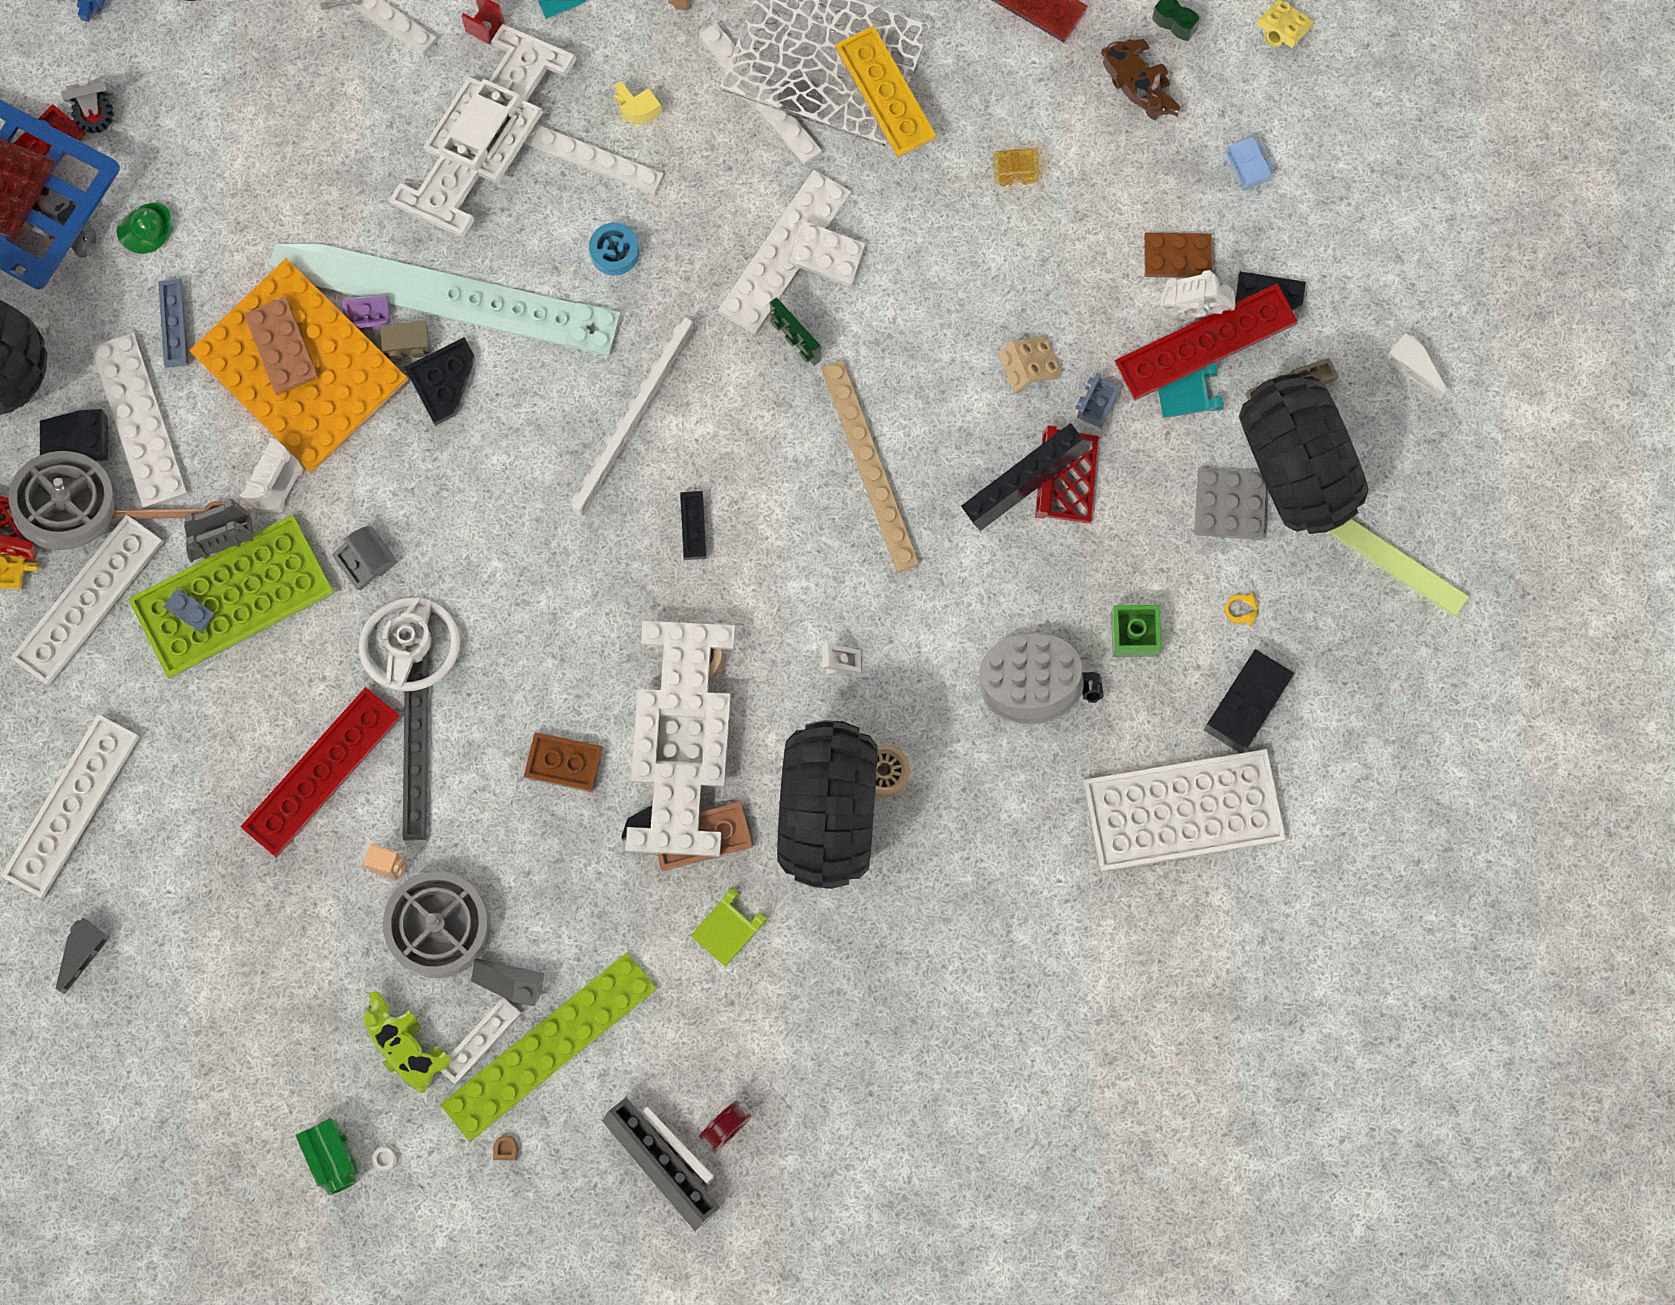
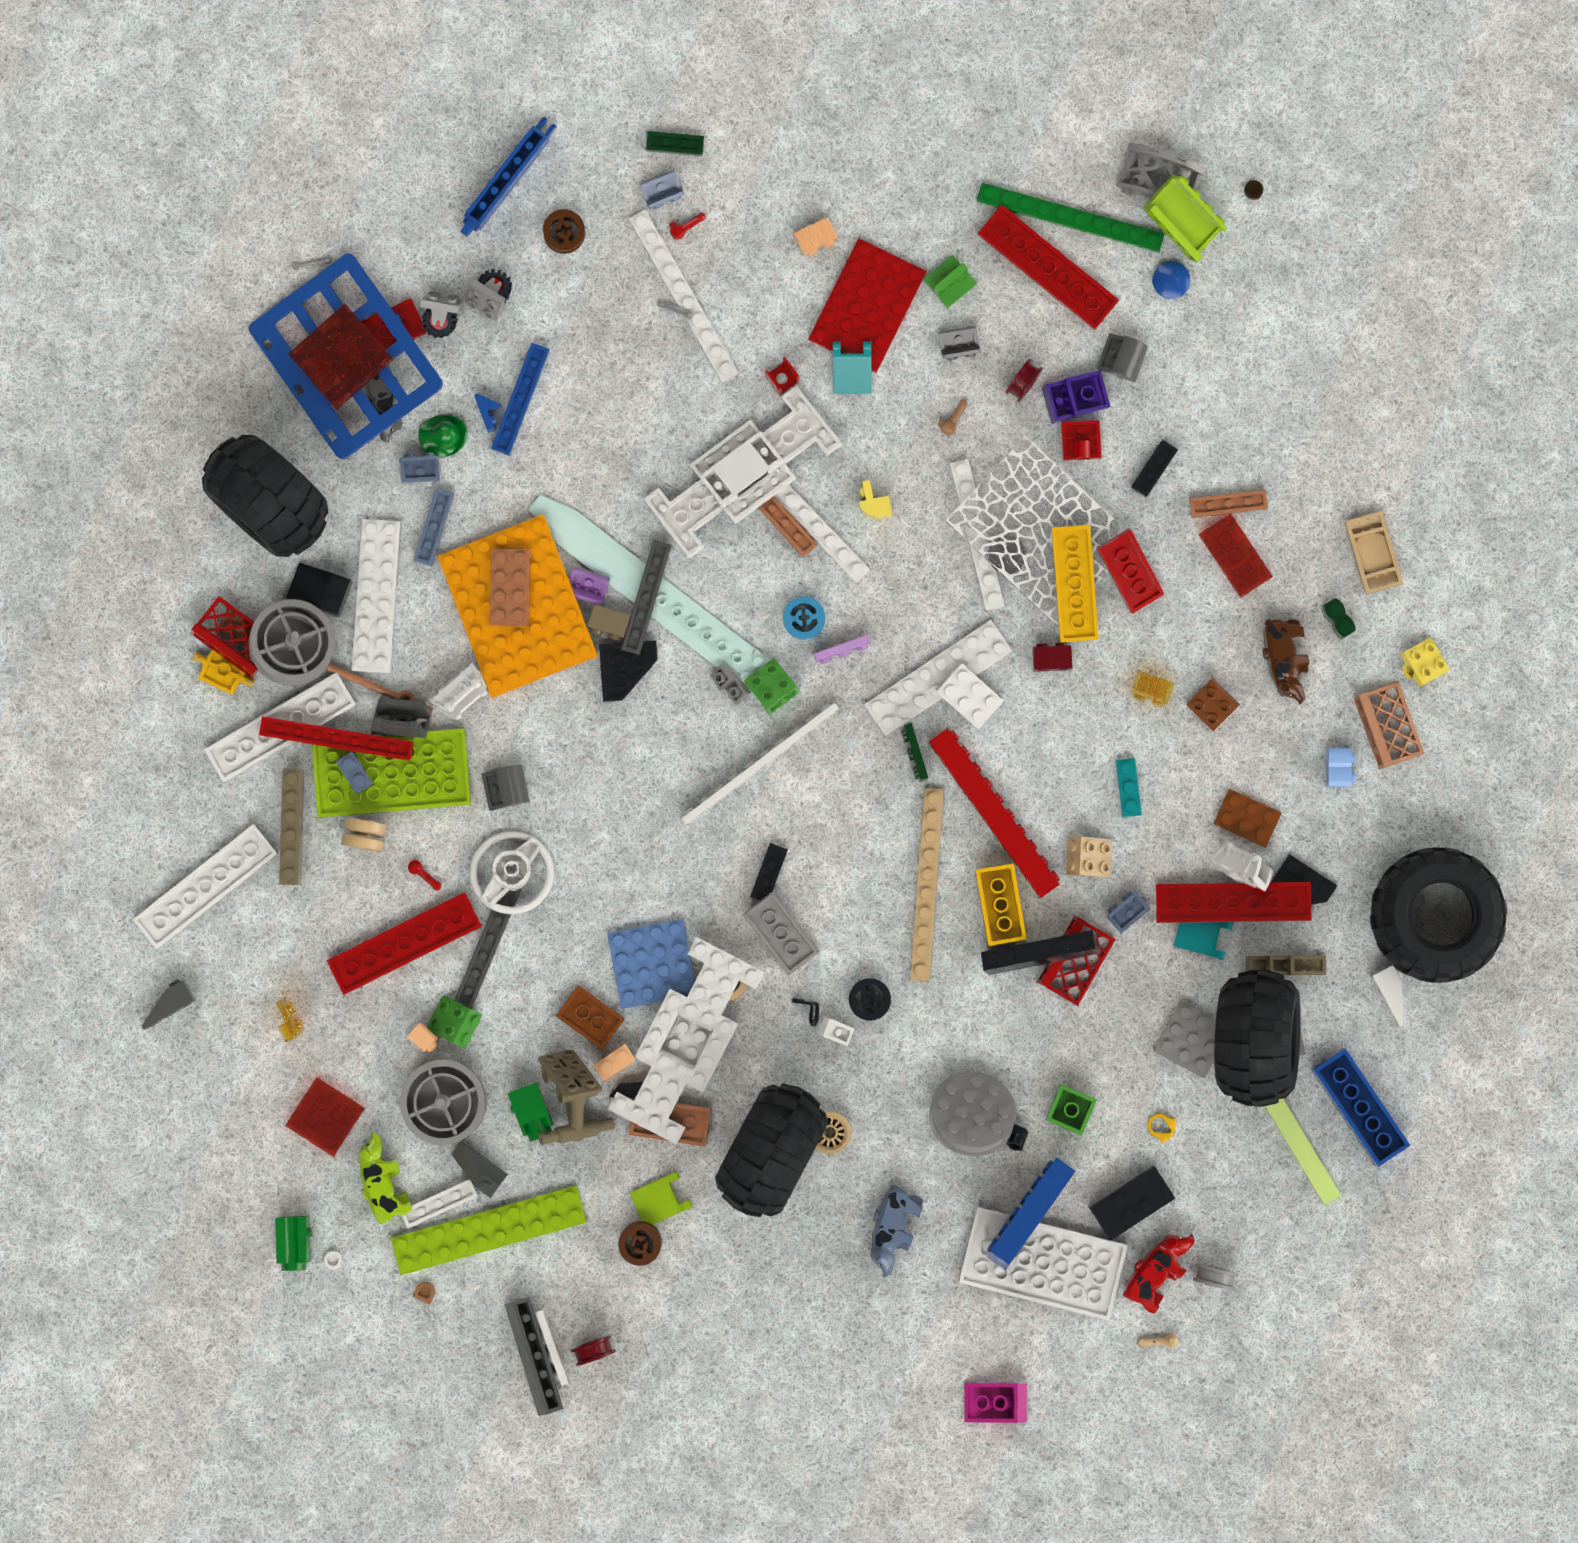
camera: 25 degrees right, 10 degrees up
(132, 268) = (419, 468): none -> sand blue bracket
(134, 65) = (489, 293): none -> light grey plate
(142, 699) = (291, 827): none -> dark tan brick
(153, 582) = (336, 738): none -> red plate
(181, 180) = (486, 406): none -> blue slope
(213, 157) = (520, 399): none -> blue plate
(226, 670) = (363, 836): none -> tan wheel
(230, 915) = (292, 1027): none -> clear yellow plate
(300, 686) = (415, 867): none -> red piece
(309, 1000) = (325, 1116): none -> clear red plate
(413, 831) = (454, 1021): none -> bright green bracket
(434, 297) = (646, 597): none -> dark grey tile
(540, 891) = (531, 1111): none -> green piece
(555, 166) = (788, 526): none -> nougat plate
(564, 347) = (731, 683): none -> light grey slope
(575, 839) = (573, 1086): none -> dark tan plate
(603, 675) = (651, 962): none -> medium blue plate
(611, 330) = (772, 686): none -> bright green bracket
(611, 798) = (614, 1062): none -> light nougat brick
(669, 263) = (842, 649): none -> lavender plate
(711, 973) = (632, 1230): none -> reddish brown wheel
(734, 582) = (780, 933): none -> light grey tile
(800, 641) = (801, 1001): none -> black piece
(848, 601) = (878, 1012): none -> black wheel
(896, 179) = (1052, 657): none -> dark red brick
(908, 361) = (993, 812): none -> red brick
(937, 57) = (1130, 571): none -> red plate
(958, 449) = (1000, 905): none -> yellow brick
(997, 843) = (890, 1226): none -> sand blue animal
(1038, 277) = (1128, 787): none -> teal plate
(1086, 154) = (1212, 704): none -> dark orange plate
(1144, 757) = (1033, 1209): none -> blue brick
(1203, 985) = (995, 1402): none -> dark pink slope
(1268, 112) = (1373, 730): none -> nougat fence
(1309, 760) = (1155, 1269): none -> red animal
(1361, 833) = (1169, 1340): none -> tan piece
(1378, 738) = (1215, 1276): none -> light grey wheel
(1422, 301) = (1394, 925): none -> black tyre
(1444, 494) = (1360, 1107): none -> blue brick

